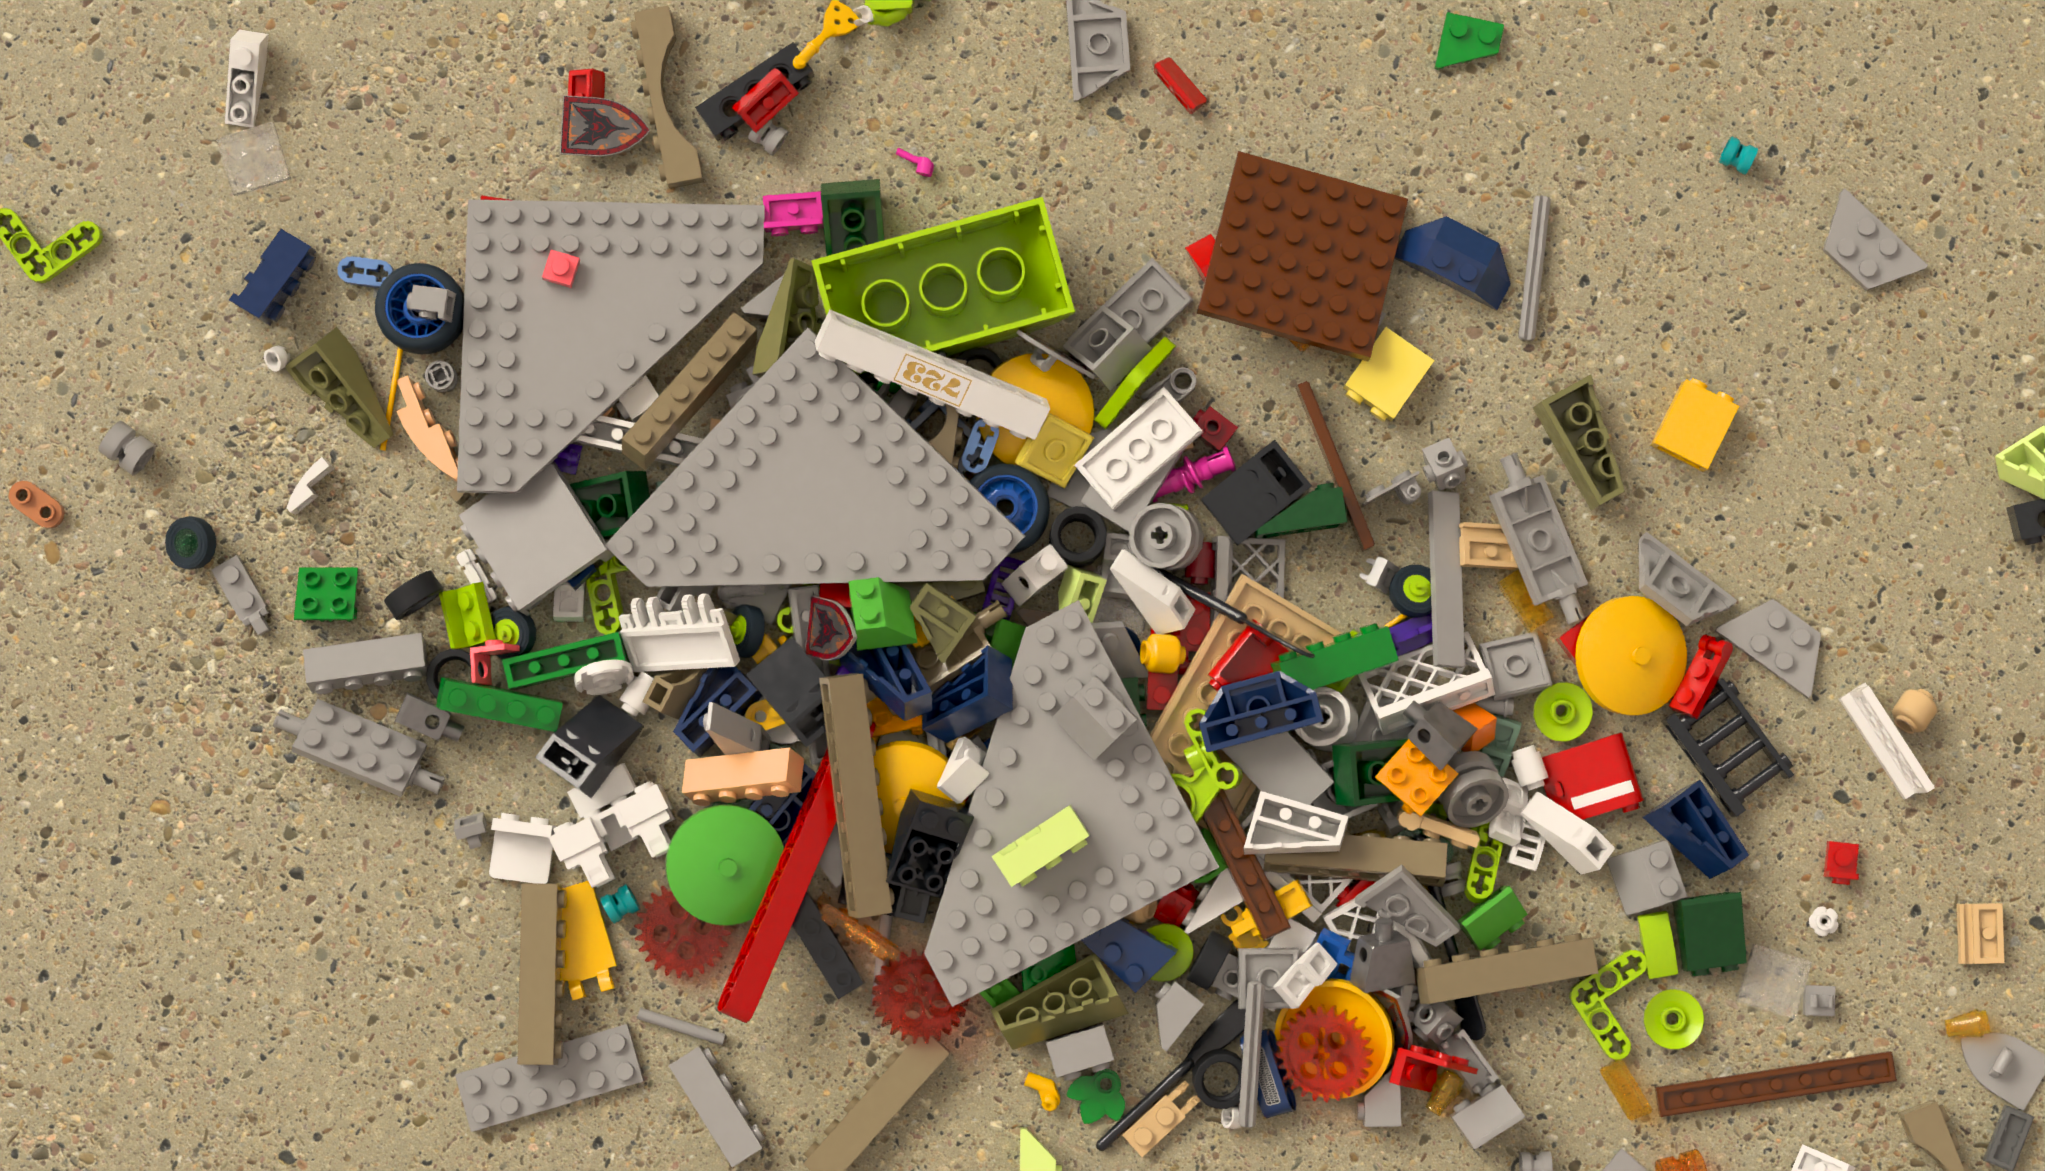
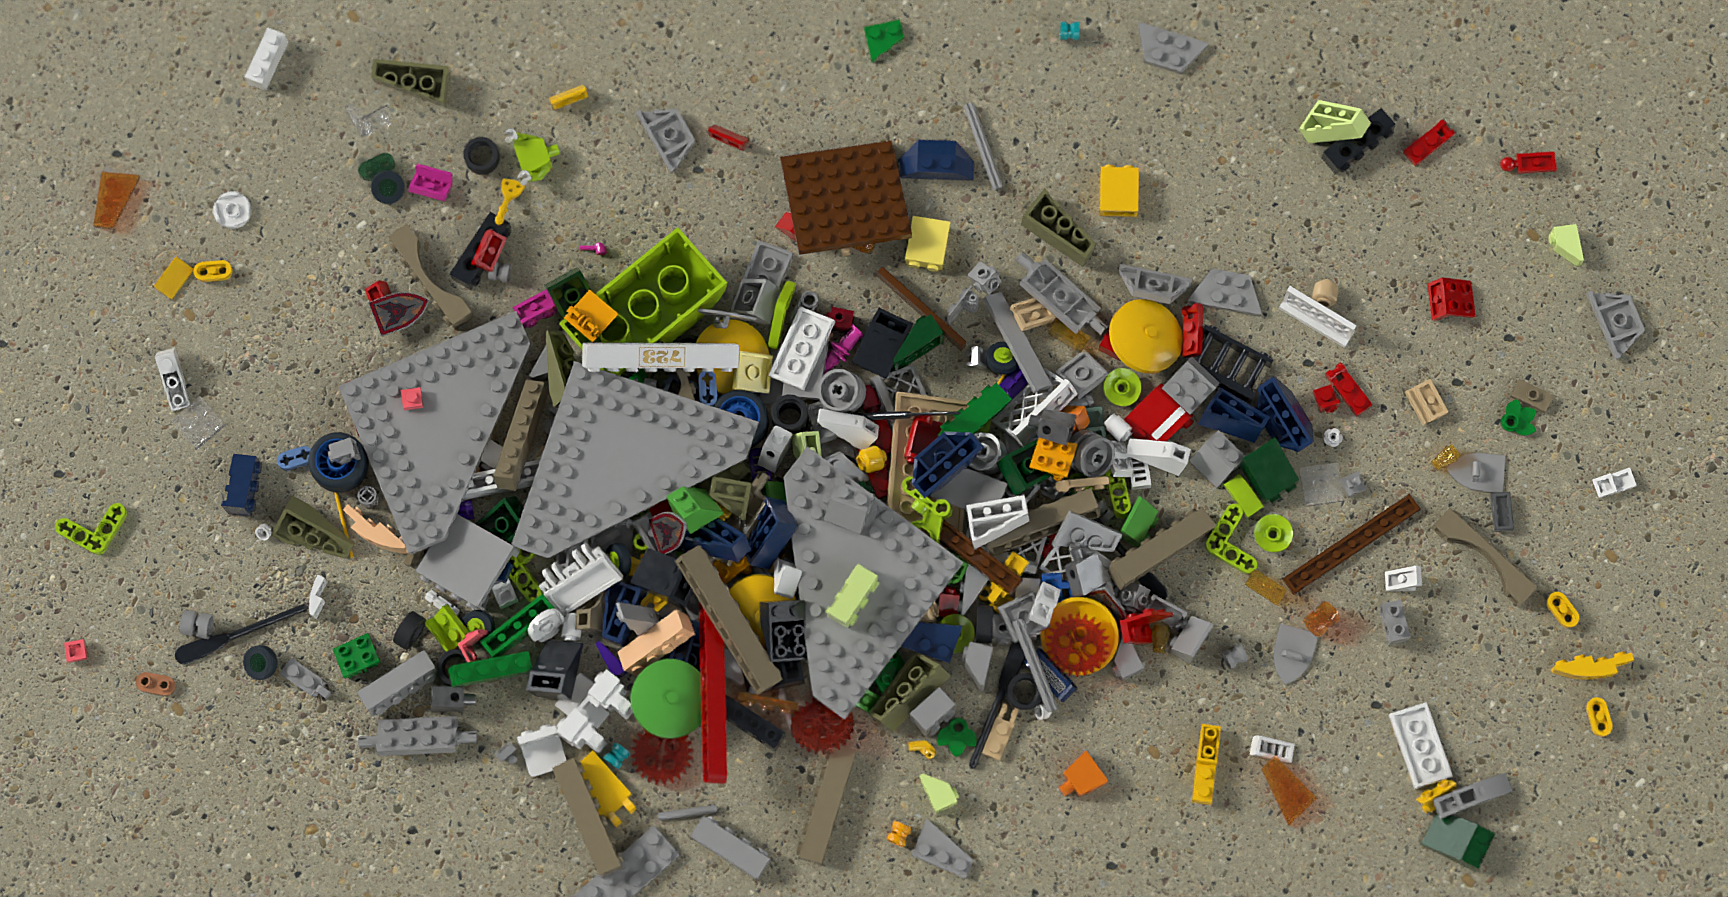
camera: 25 degrees left, 10 degrees down
(118, 482) = (200, 648): none -> black piece
(671, 766) = (613, 664): none -> dark purple slope
(860, 271) = (590, 315): none -> light orange hinge
(1659, 757) = (1190, 385): none -> light grey brick
(1773, 871) = (1287, 418): none -> dark blue wedge
(1879, 863) = (1348, 390): none -> red plate

